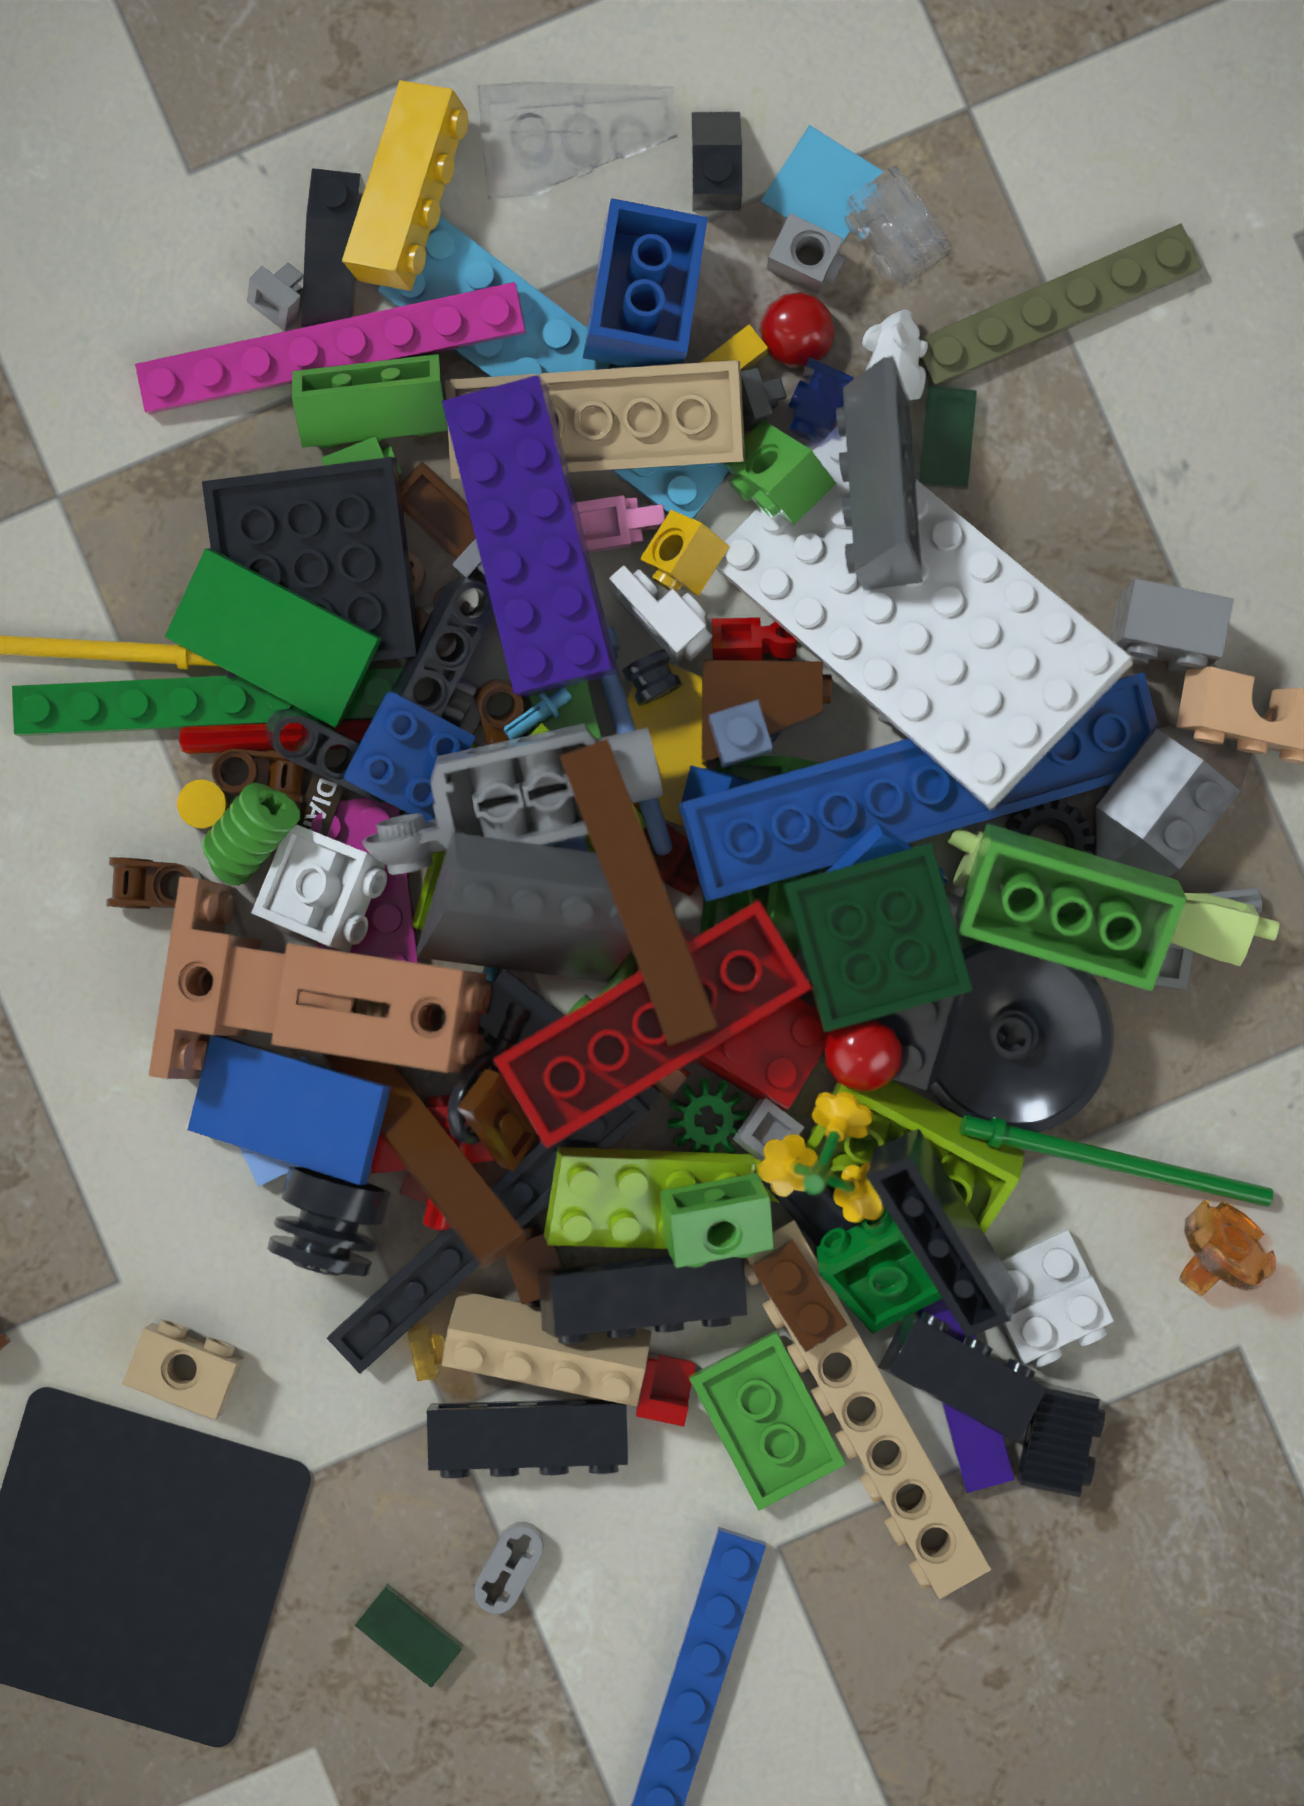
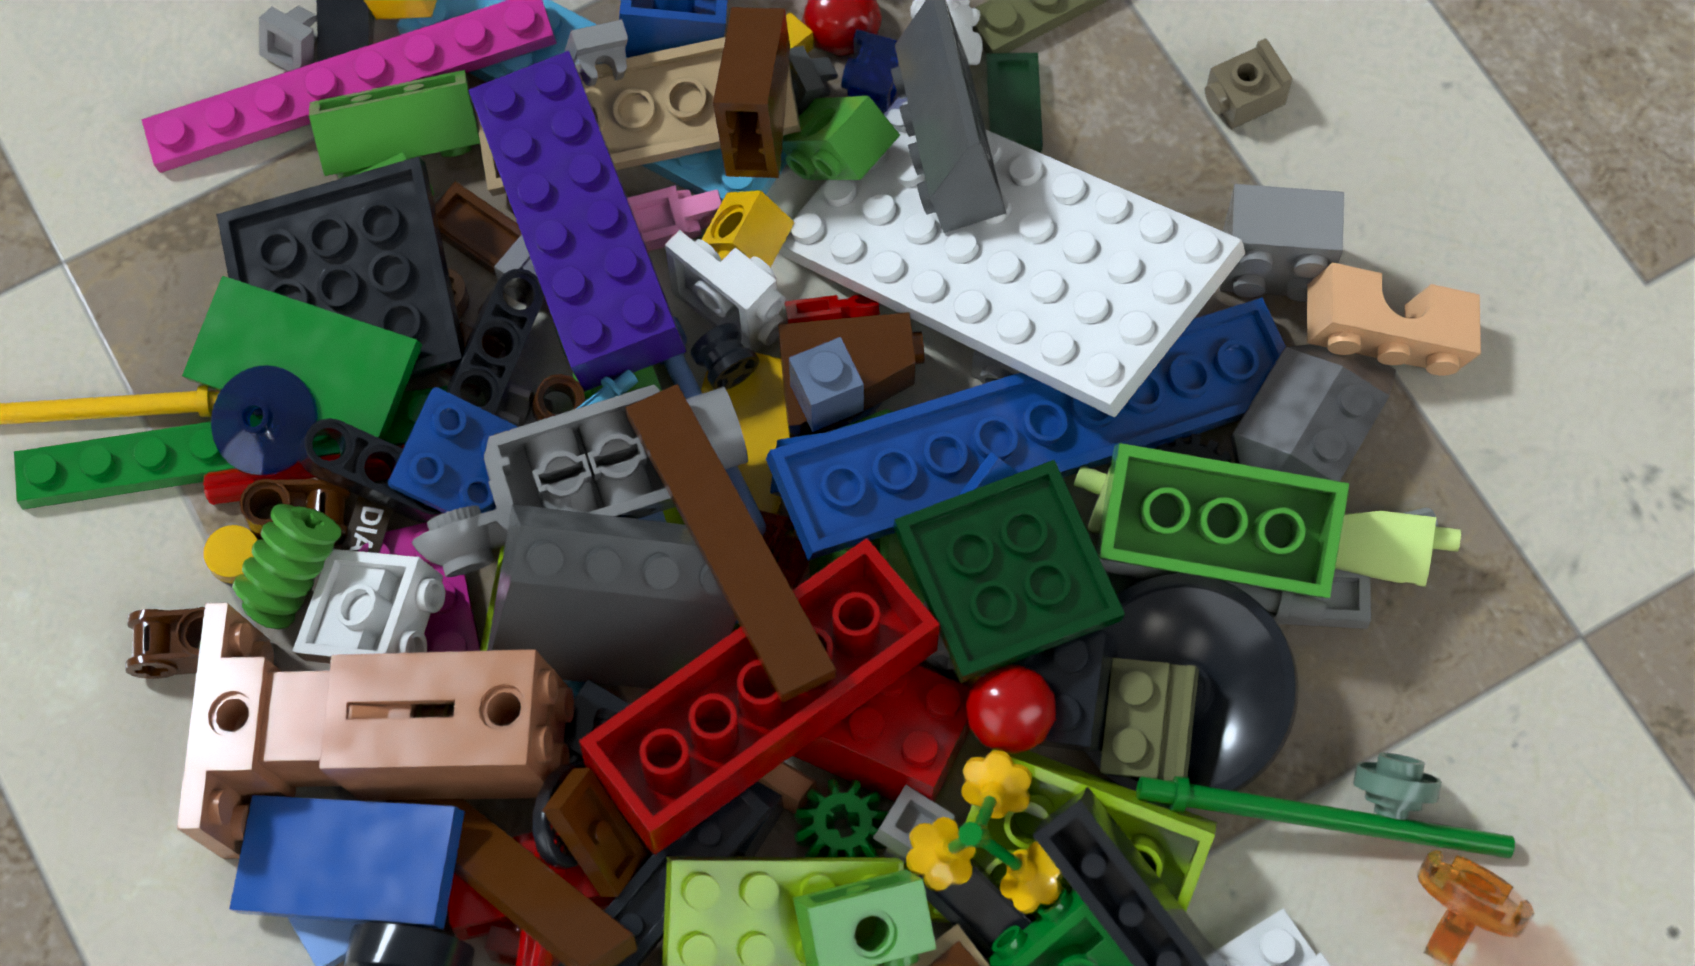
camera: 10 degrees left, 20 degrees down
(256, 684) = (287, 416): none -> clear blue dish
(567, 360) = (597, 45): none -> light grey tile
(706, 430) = (753, 92): none -> reddish brown slope
(980, 1062) = (1149, 719): none -> olive plate
(1182, 1139) = (1396, 784): none -> sand green plate
(1186, 444) = (1242, 100): none -> dark tan brick

